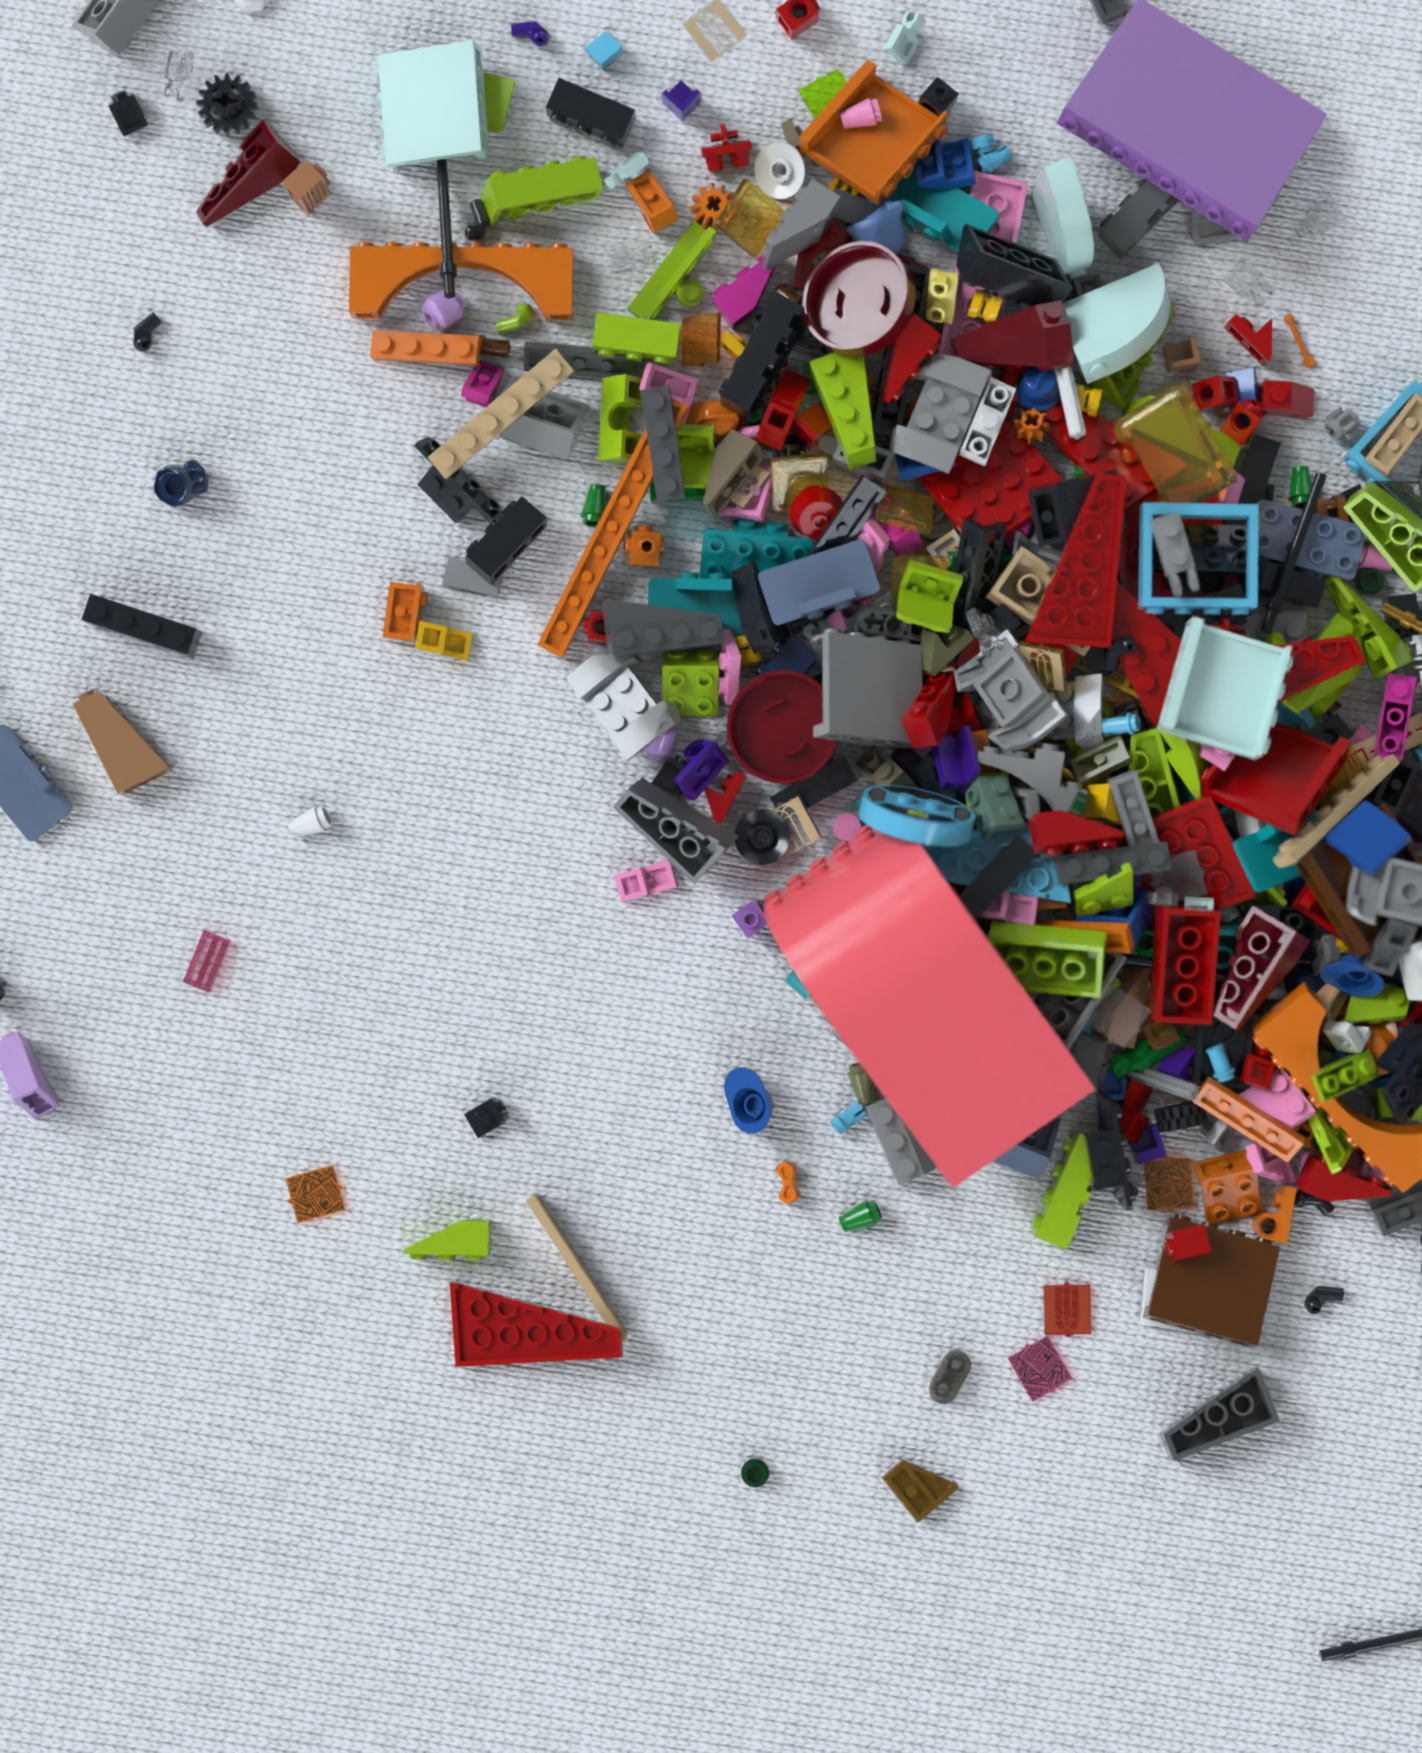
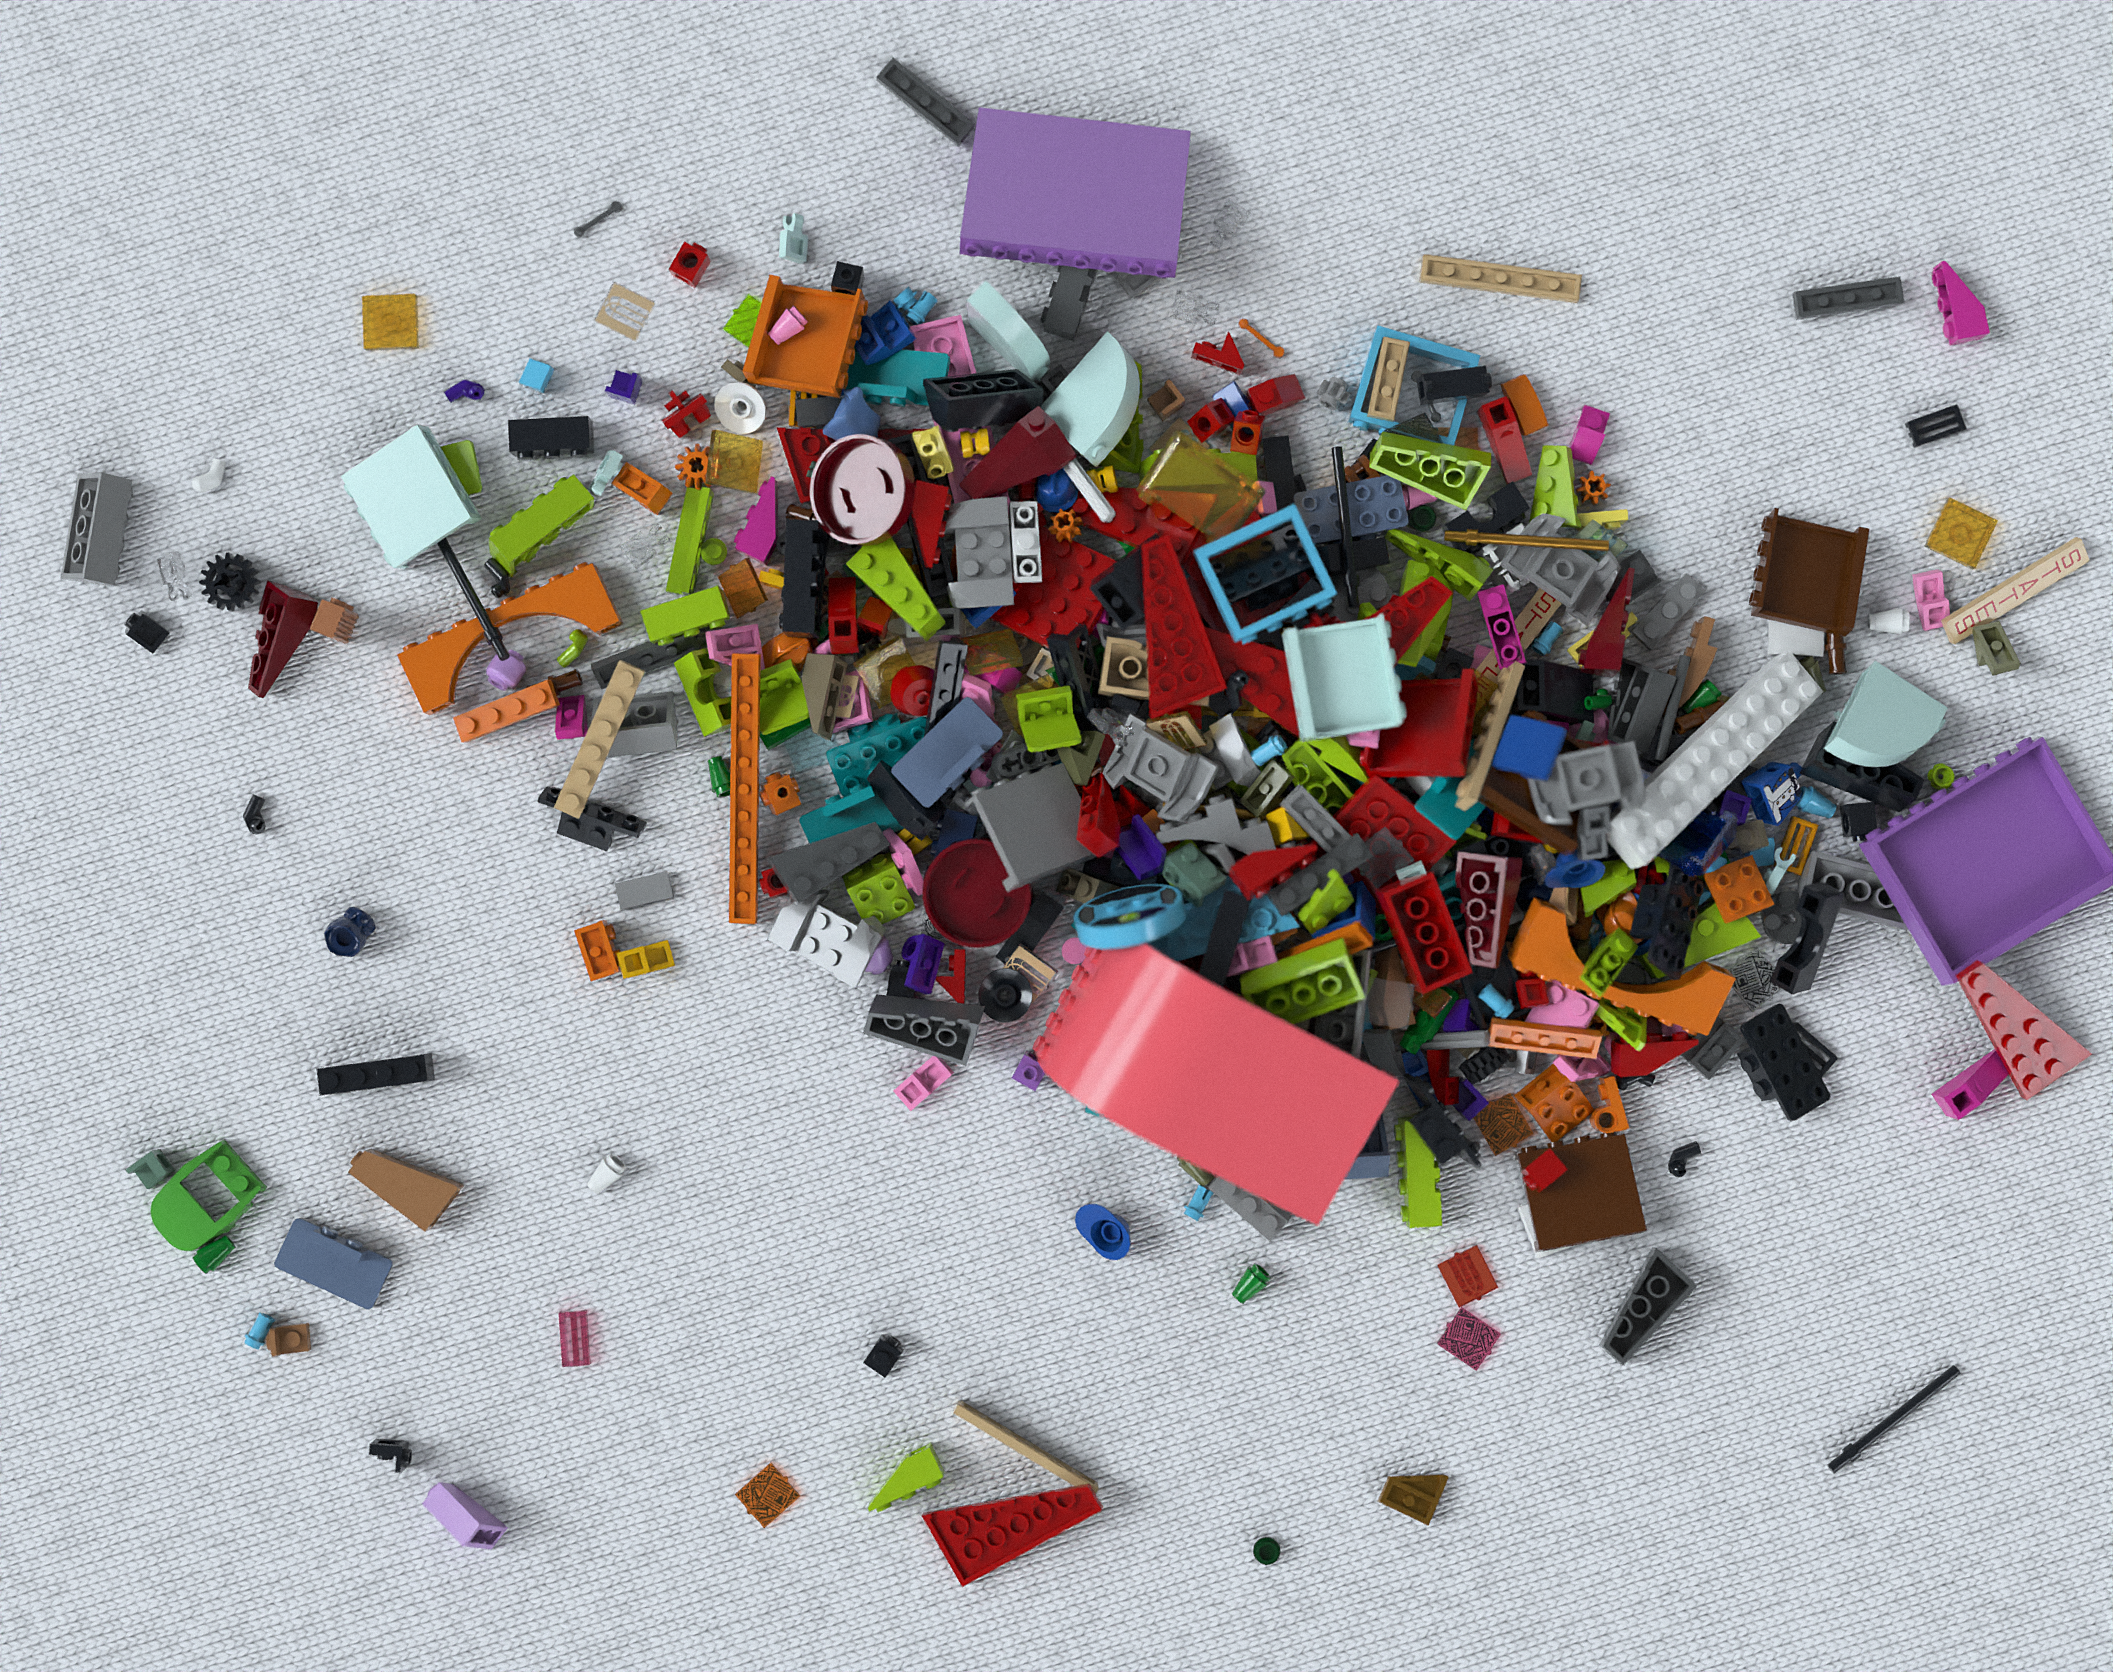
camera: 25 degrees left, 0 degrees up
(505, 540) = (657, 845): black brick -> none
(663, 444) = (753, 697): dark grey plate -> none
(787, 1171) = (1168, 1275): orange piece -> none
(802, 224) = (782, 448): light grey slope -> none
(950, 1376) = (1394, 1384): clear smoke plate -> none
(1078, 803) = (1264, 838): dark green tile -> none
(1164, 896) = (1378, 881): clear plate -> none
(1174, 551) = (1241, 580): light grey hinge -> none
(1300, 486) = (1323, 464): green cone -> none
(1346, 1036) = (1594, 925): white bracket -> none

